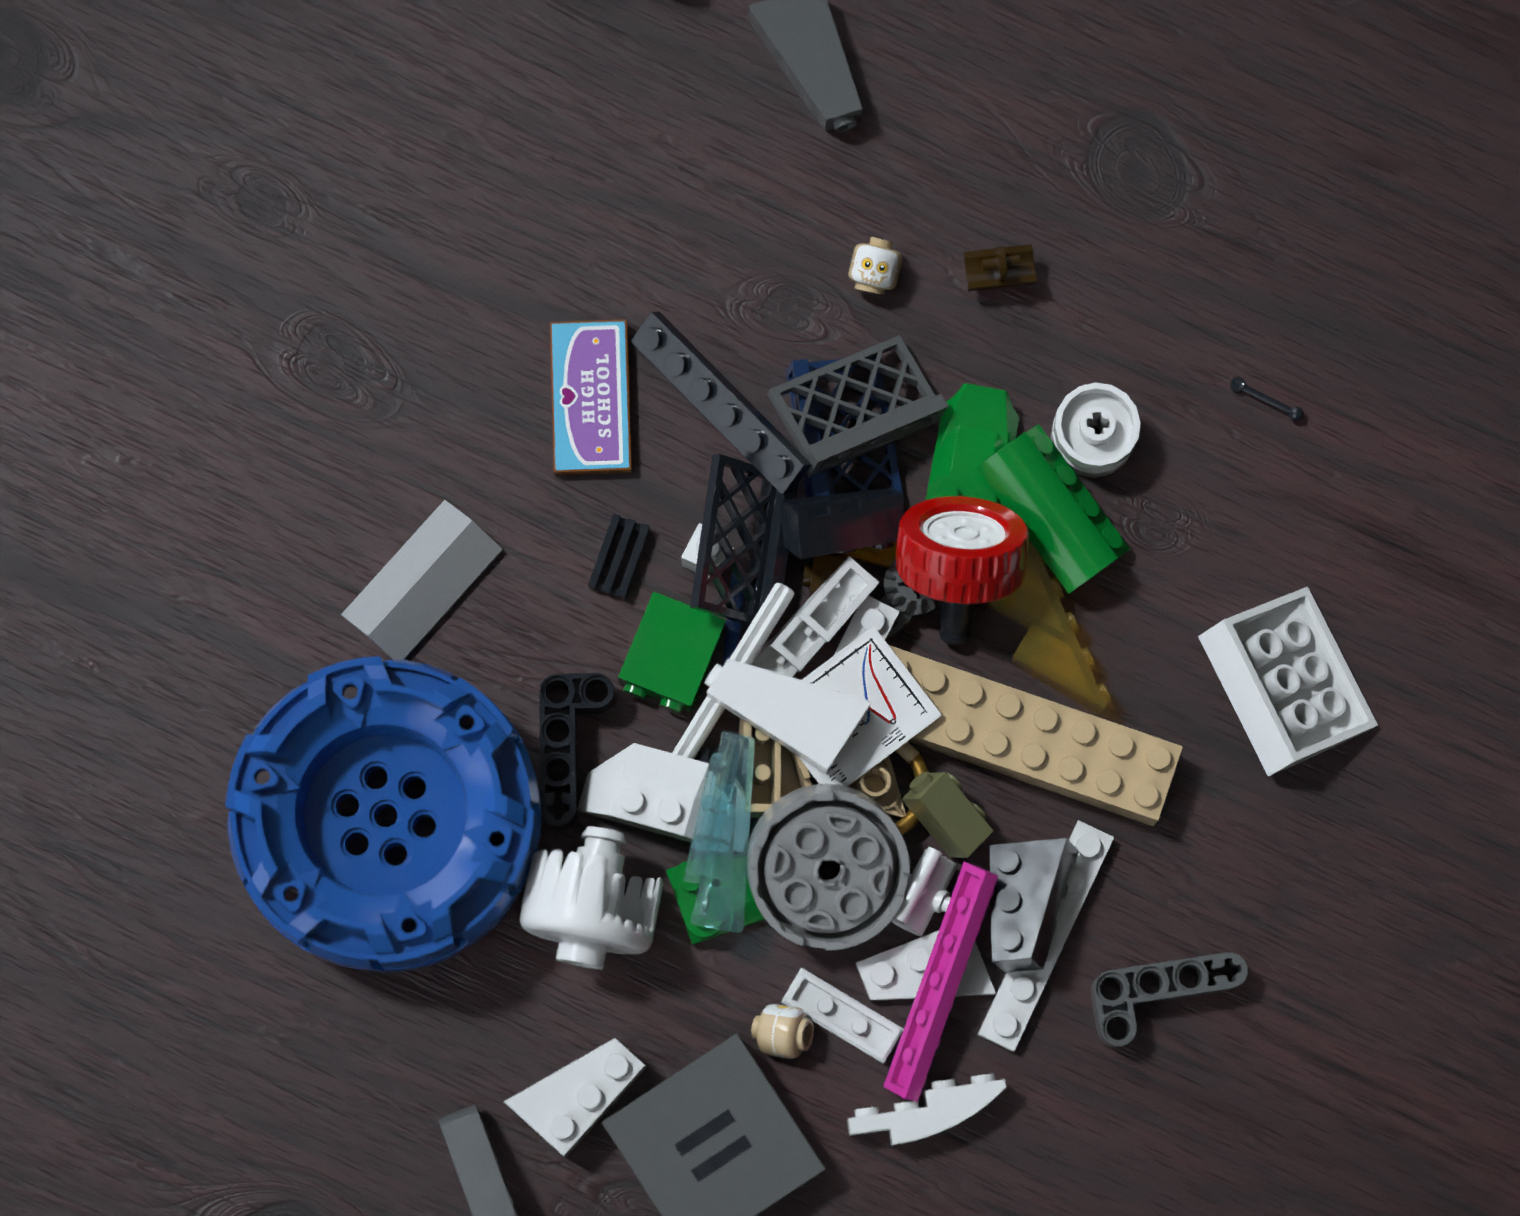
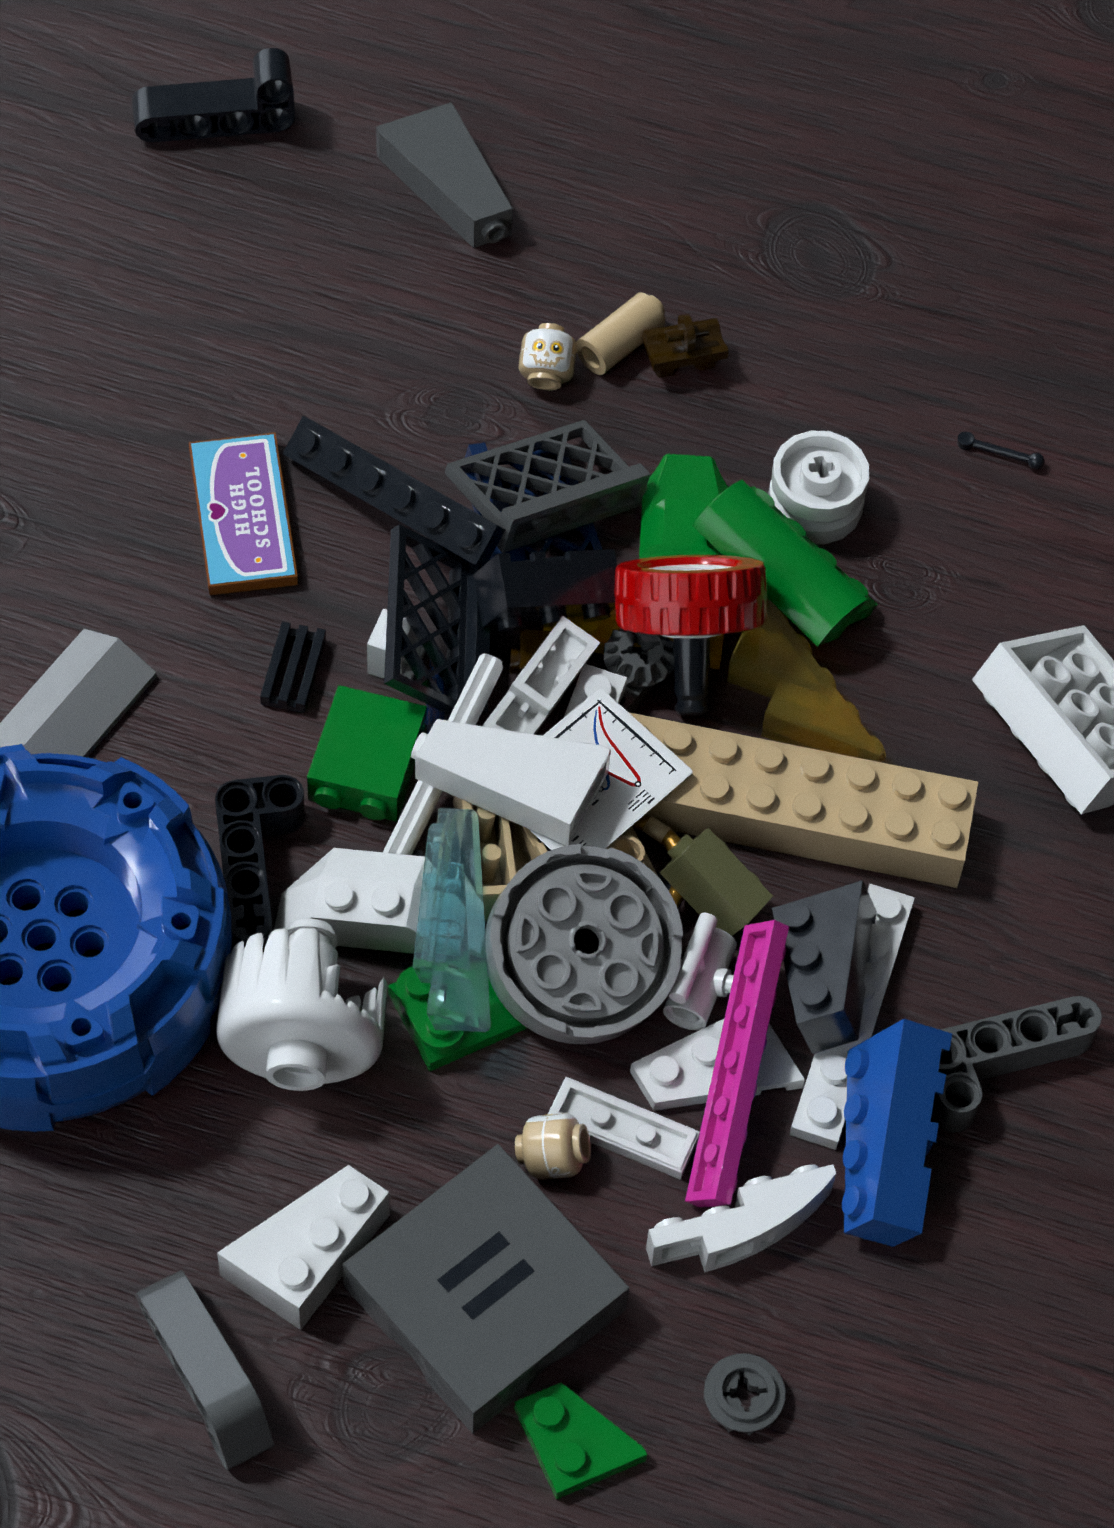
camera: 10 degrees left, 20 degrees down
(945, 245) = (620, 333): none -> tan brick
(1055, 1056) = (891, 1130): none -> blue wedge

